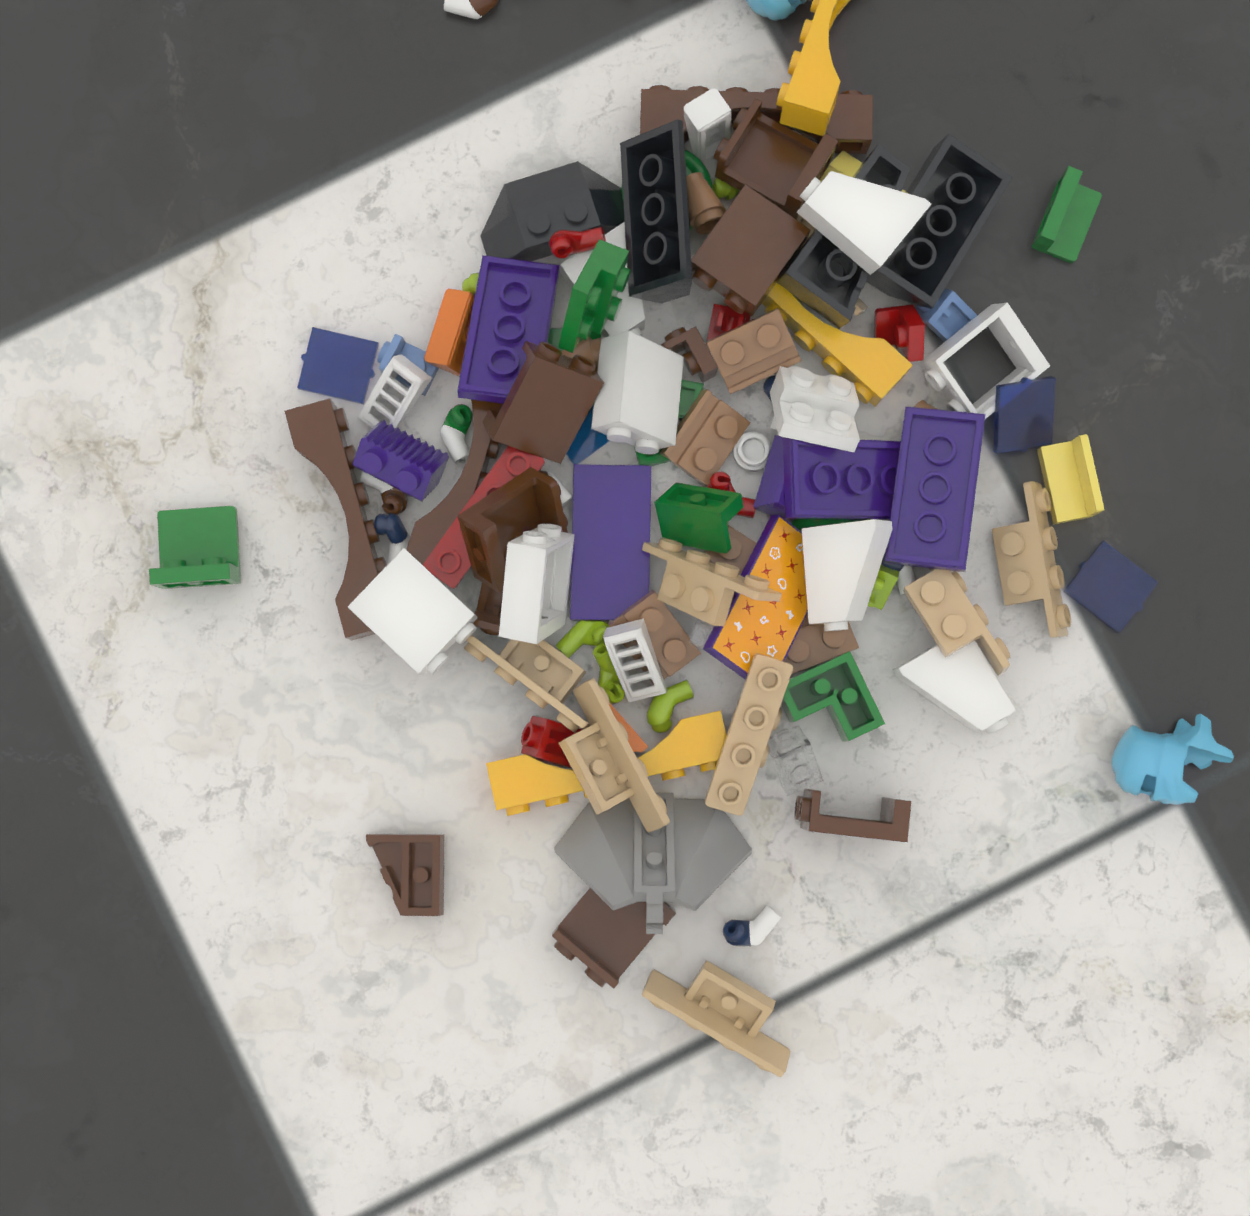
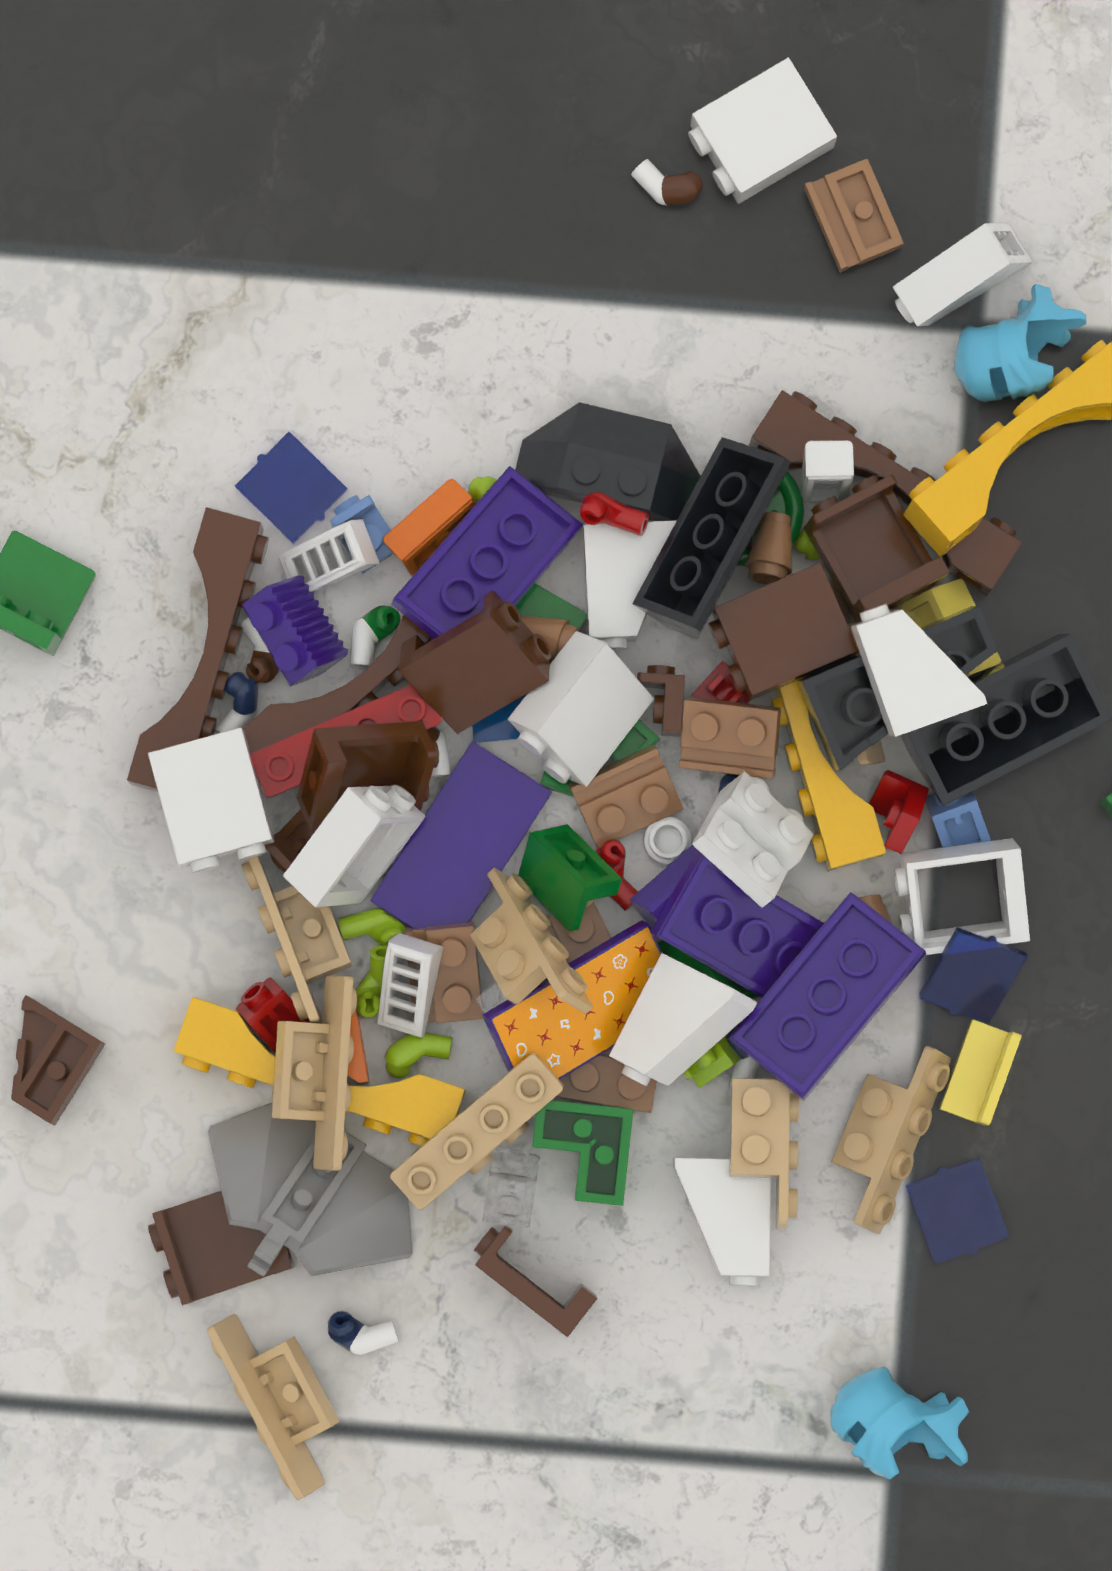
camera: 30 degrees right, 0 degrees up
(595, 294) = (593, 586): green plate -> none

